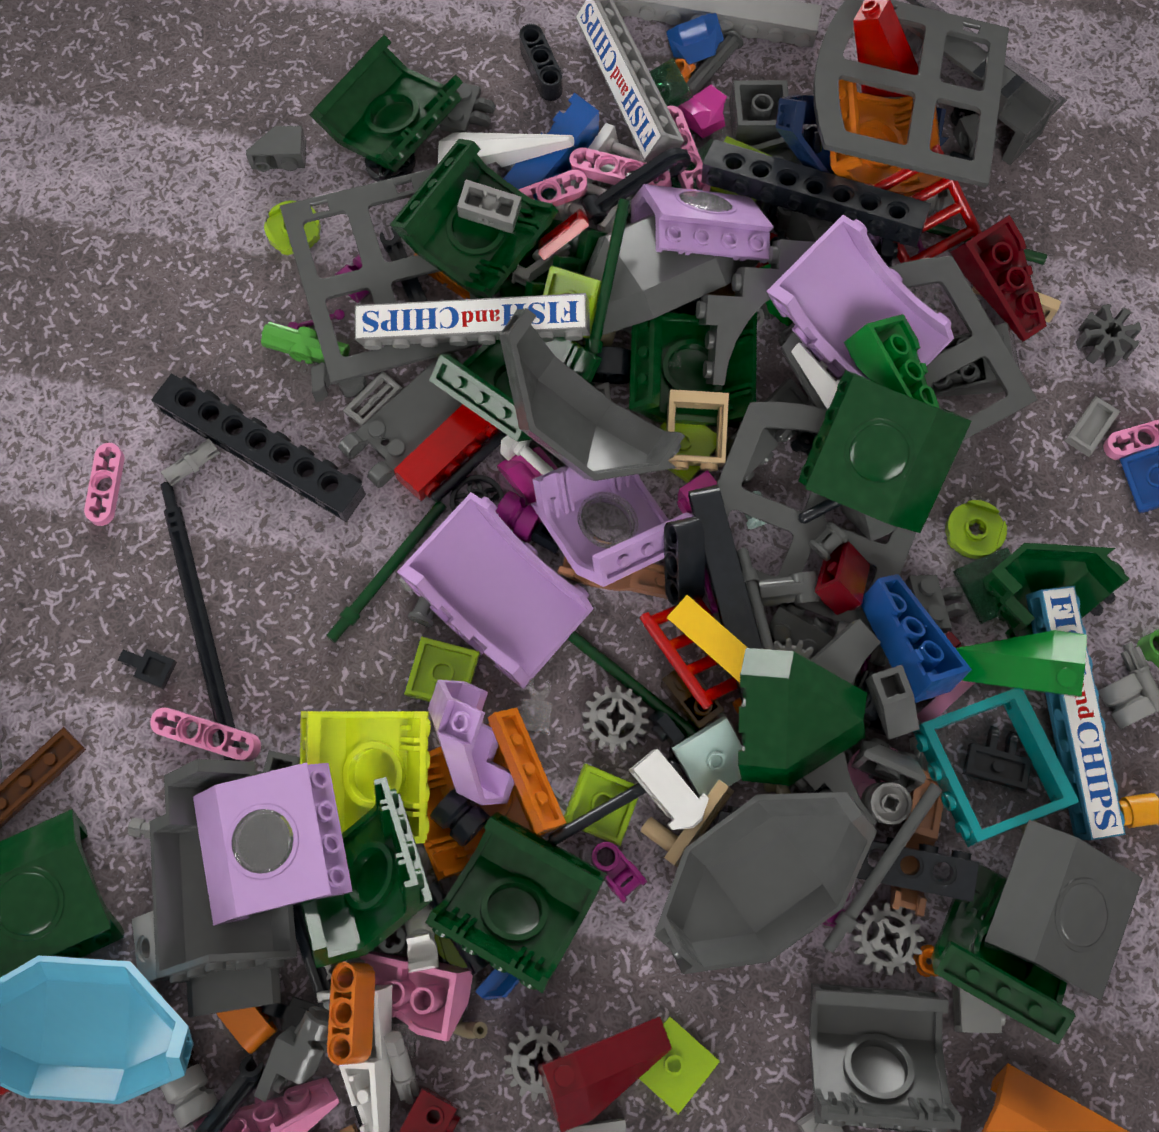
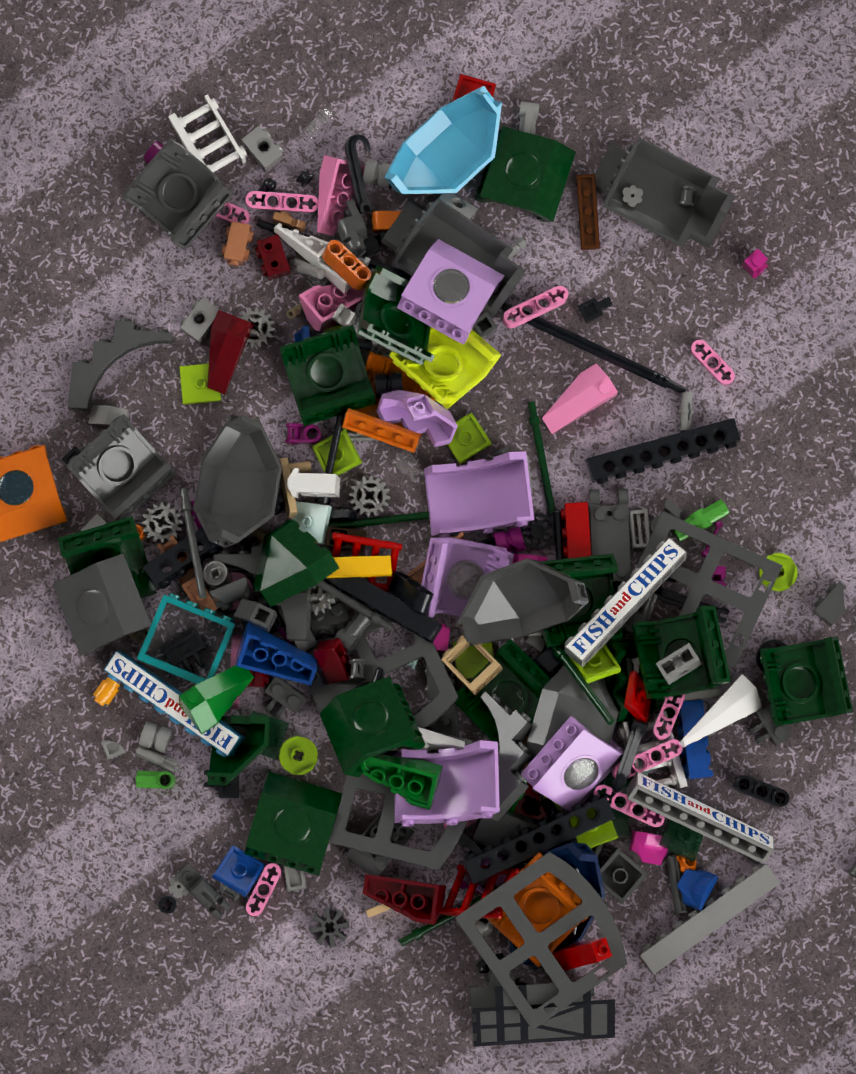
camera: 130 degrees right, 10 degrees up
(266, 586) = (582, 396): none -> bright pink wedge
(1052, 461) = (293, 823): none -> dark green panel

